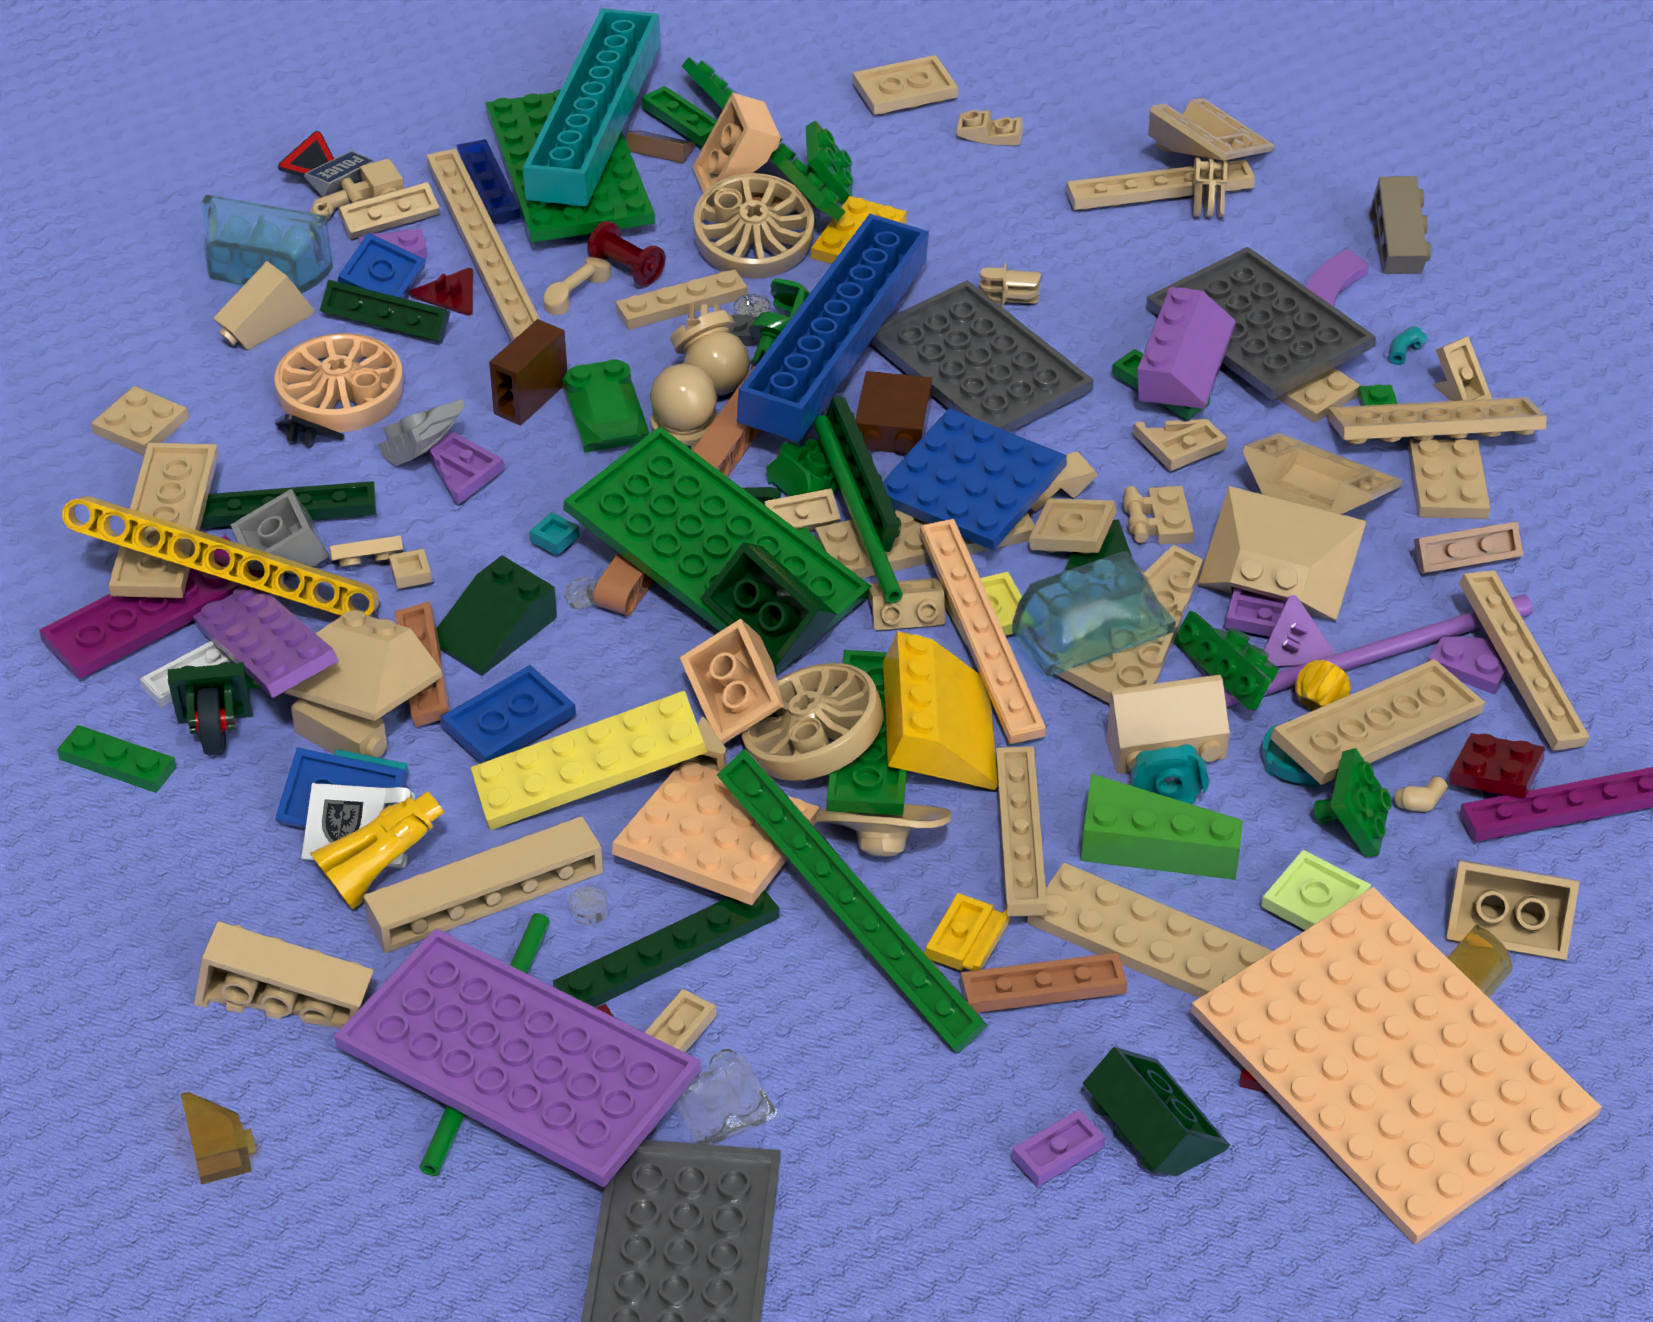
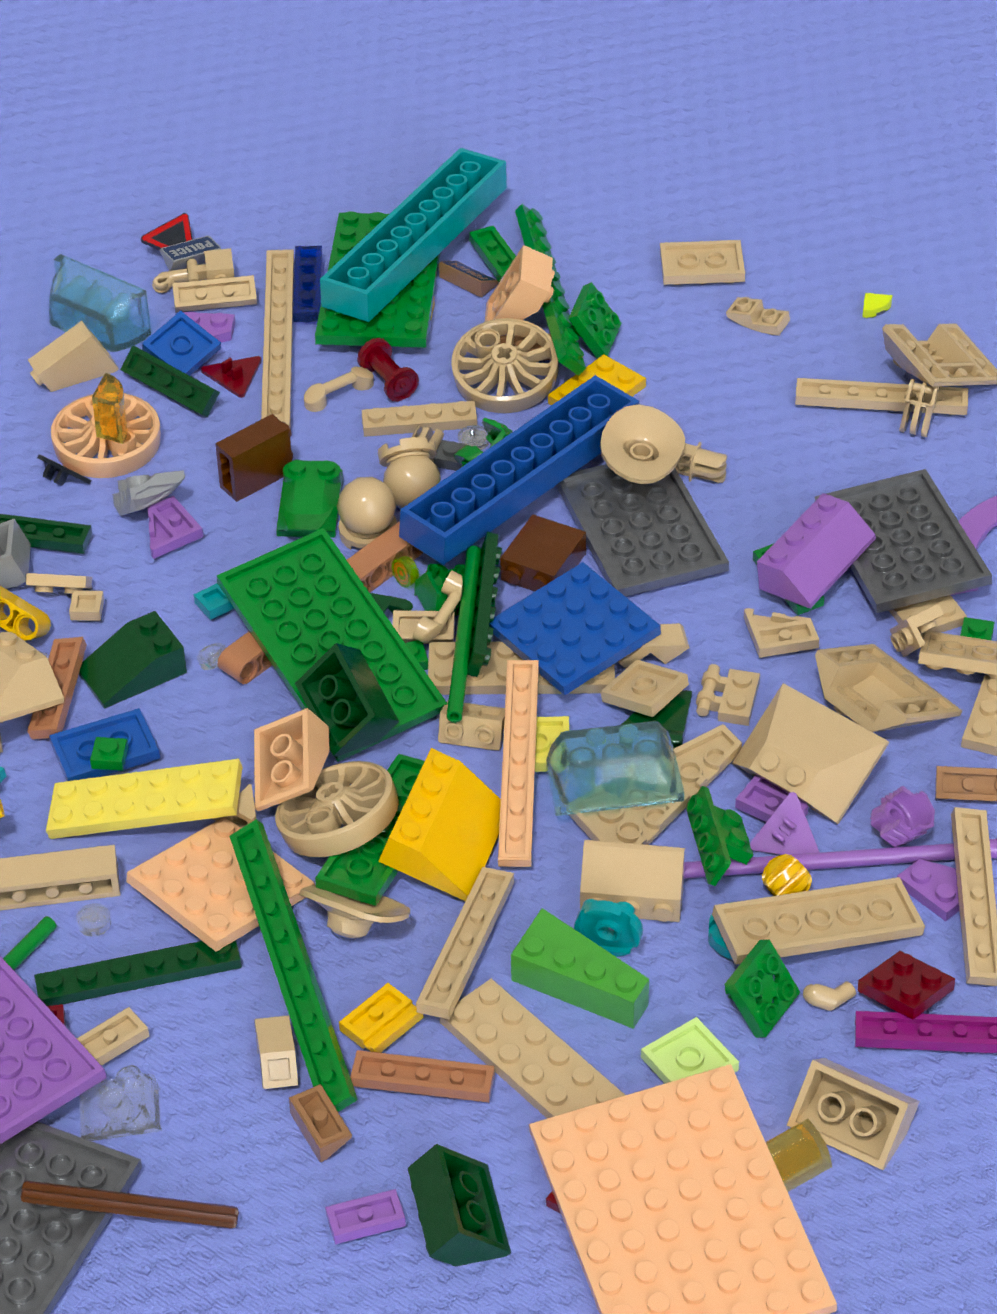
camera: 20 degrees right, 0 degrees up
(352, 348) = (110, 410): none -> clear yellow brick
(523, 720) = (109, 753): none -> green plate
(751, 459) = (405, 571): none -> clear neon green tile
(795, 1202) = (129, 1204): none -> reddish brown axle
(824, 463) = (429, 629): none -> tan bar
(876, 995) = (276, 1052): none -> tan slope
(953, 274) = (642, 444): none -> tan hat
(956, 1060) = (319, 1122): none -> medium nougat slope
(1104, 95) = (876, 303): none -> neon yellow tile
(1325, 408) = (907, 635): none -> tan bracket
(1409, 595) = (903, 816): none -> medium lavender hair

